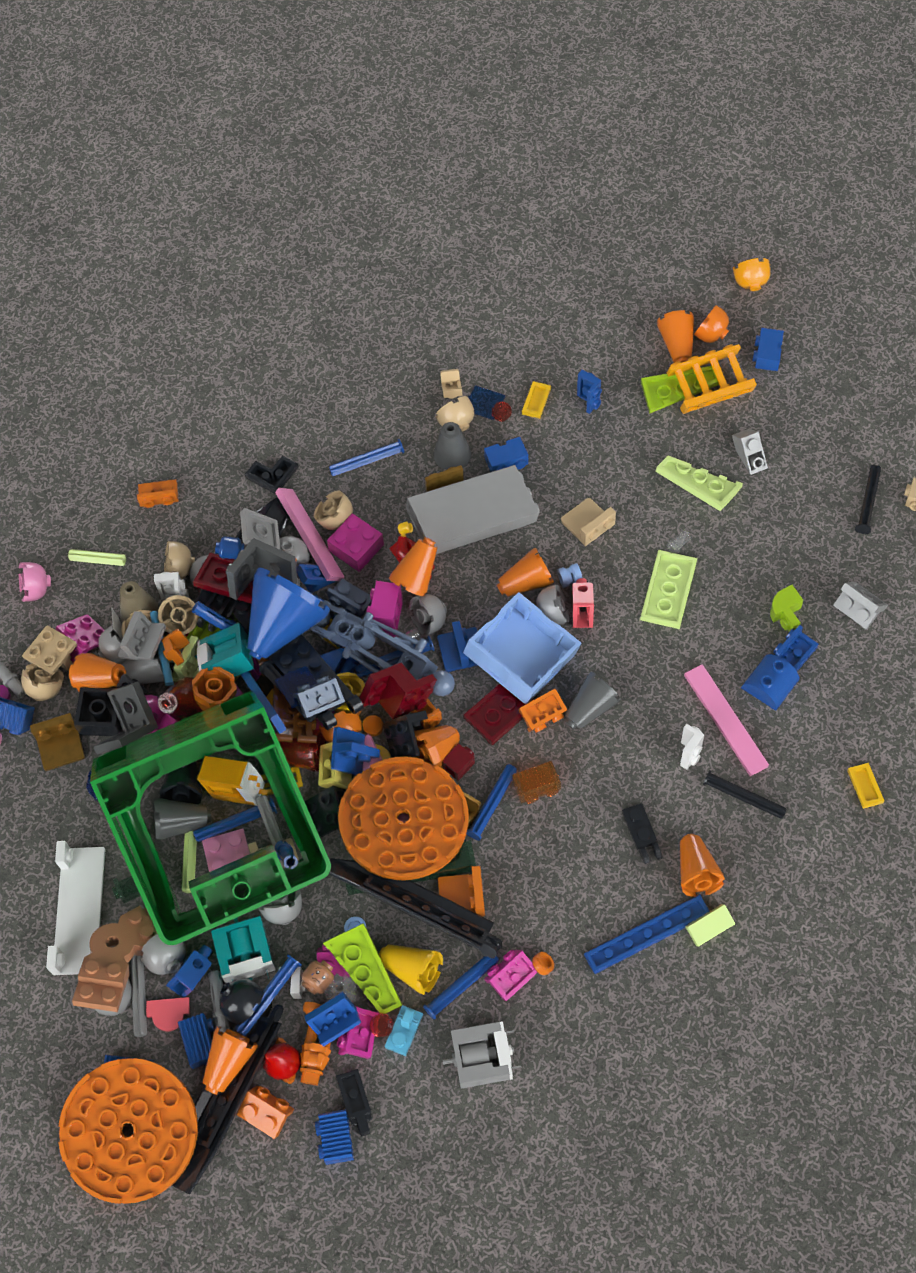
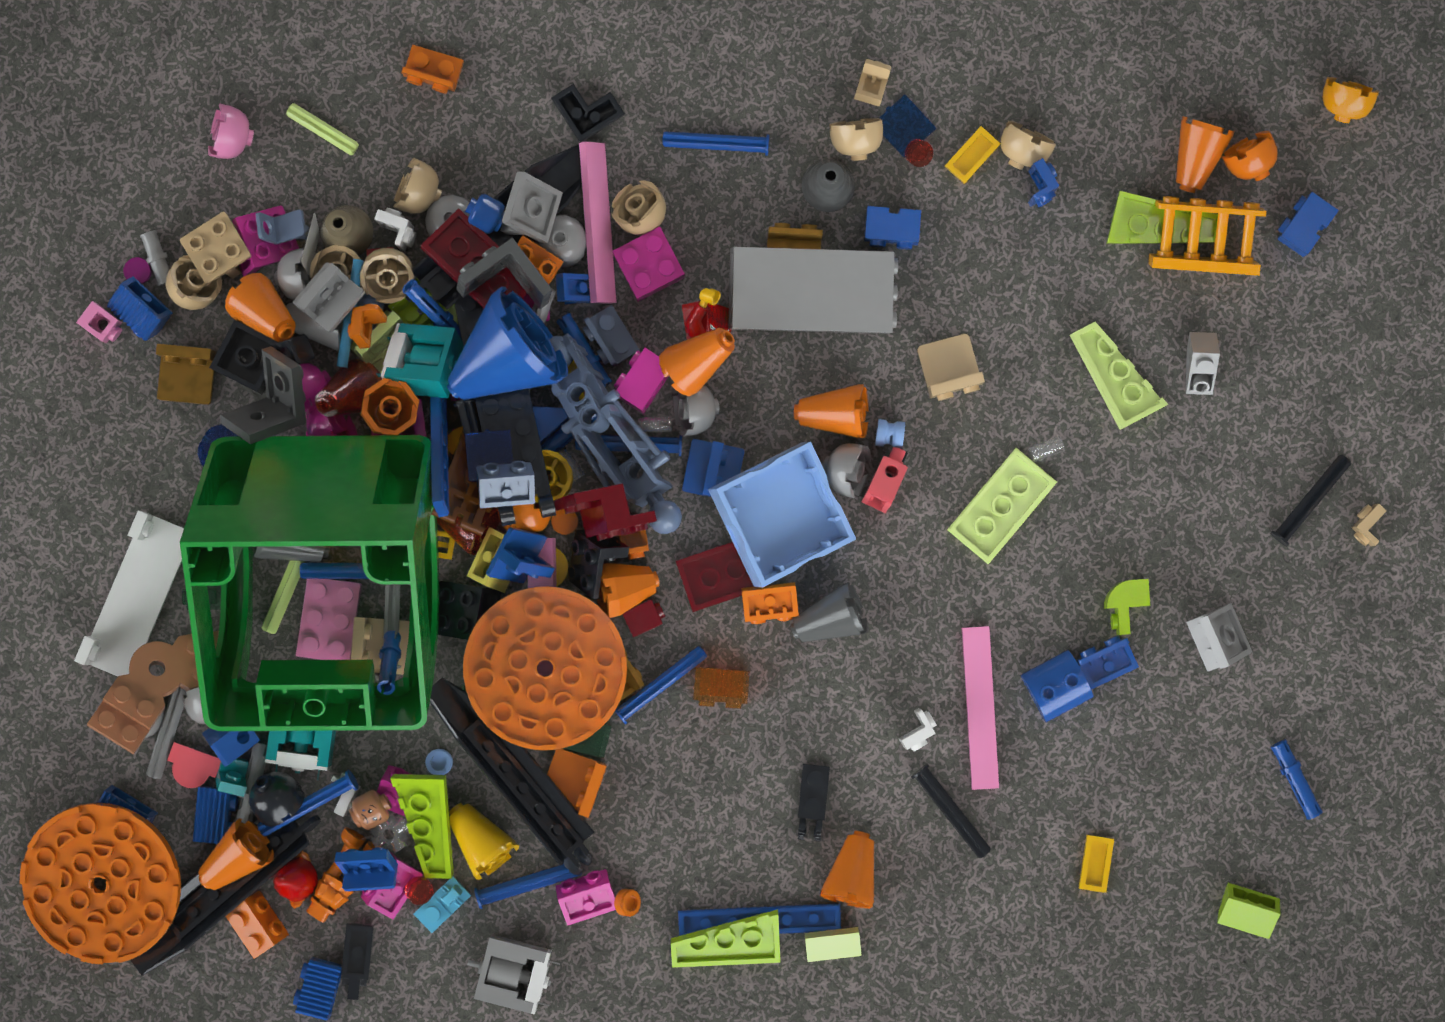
camera: 20 degrees right, 25 degrees up
(95, 618) = (283, 227): none -> sand blue bracket
(201, 1002) = (232, 777): none -> teal bracket
(564, 376) = (1024, 145): none -> tan cylinder
(639, 954) = (733, 943): none -> lime wing

